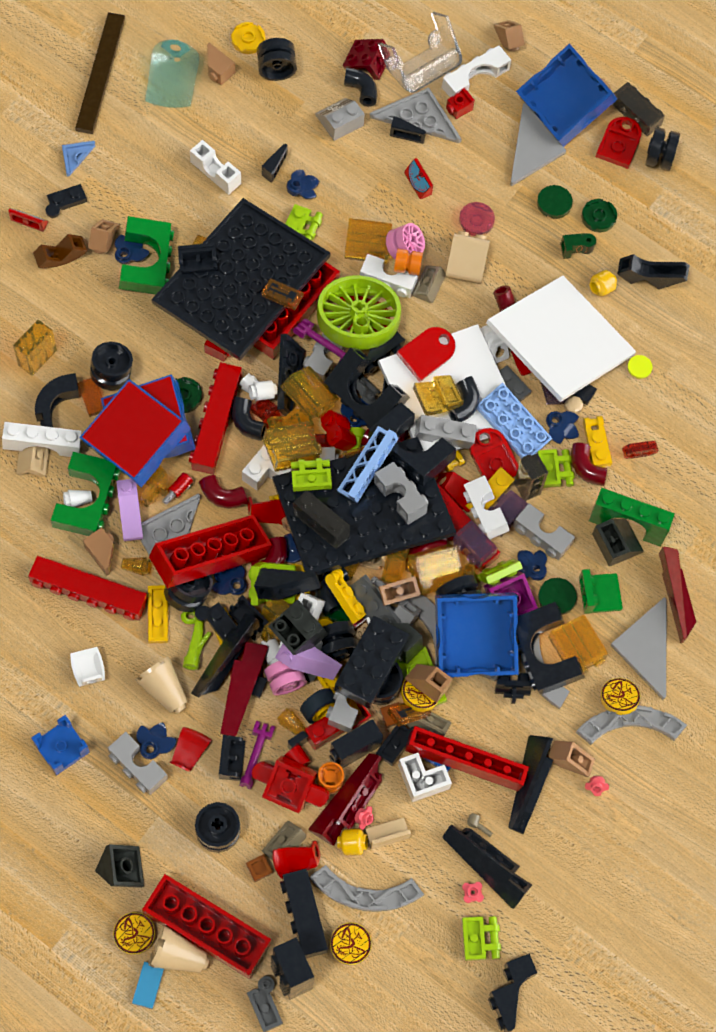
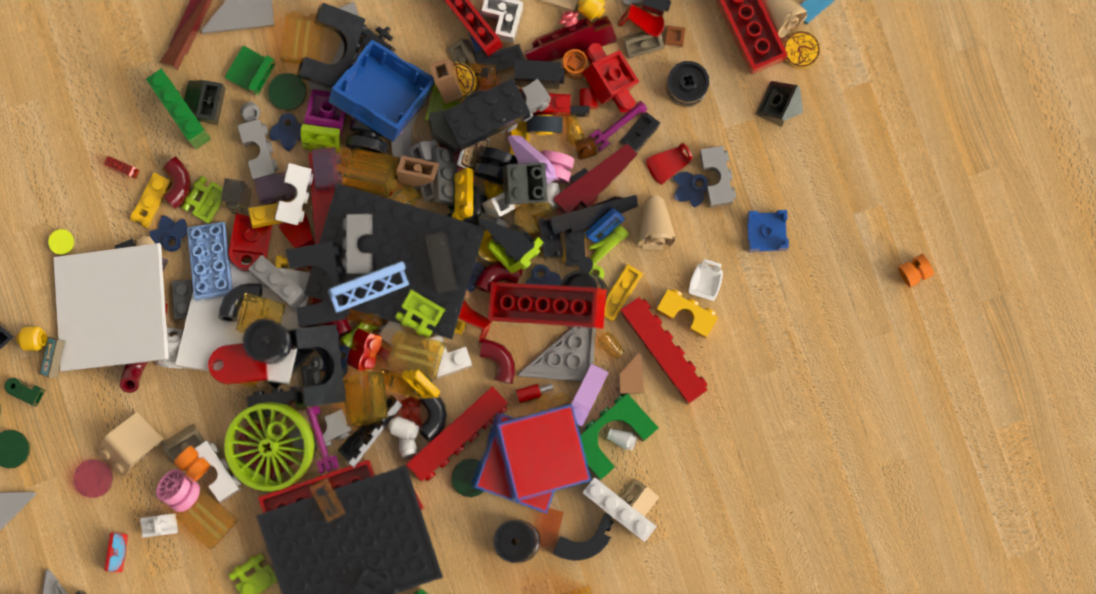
camera: 140 degrees left, 15 degrees up
(103, 633) = (702, 318): none -> yellow arch
(208, 655) = (605, 225): none -> blue tile
(270, 712) = (585, 148): none -> reddish brown plate
(271, 424) = (420, 384): none -> yellow tile
(400, 213) = (159, 525): none -> white hips
(416, 372) = (269, 352): none -> black wheel
(574, 559) = (250, 111): none -> light grey tile
(576, 279) = (52, 357): none -> dark tan slope

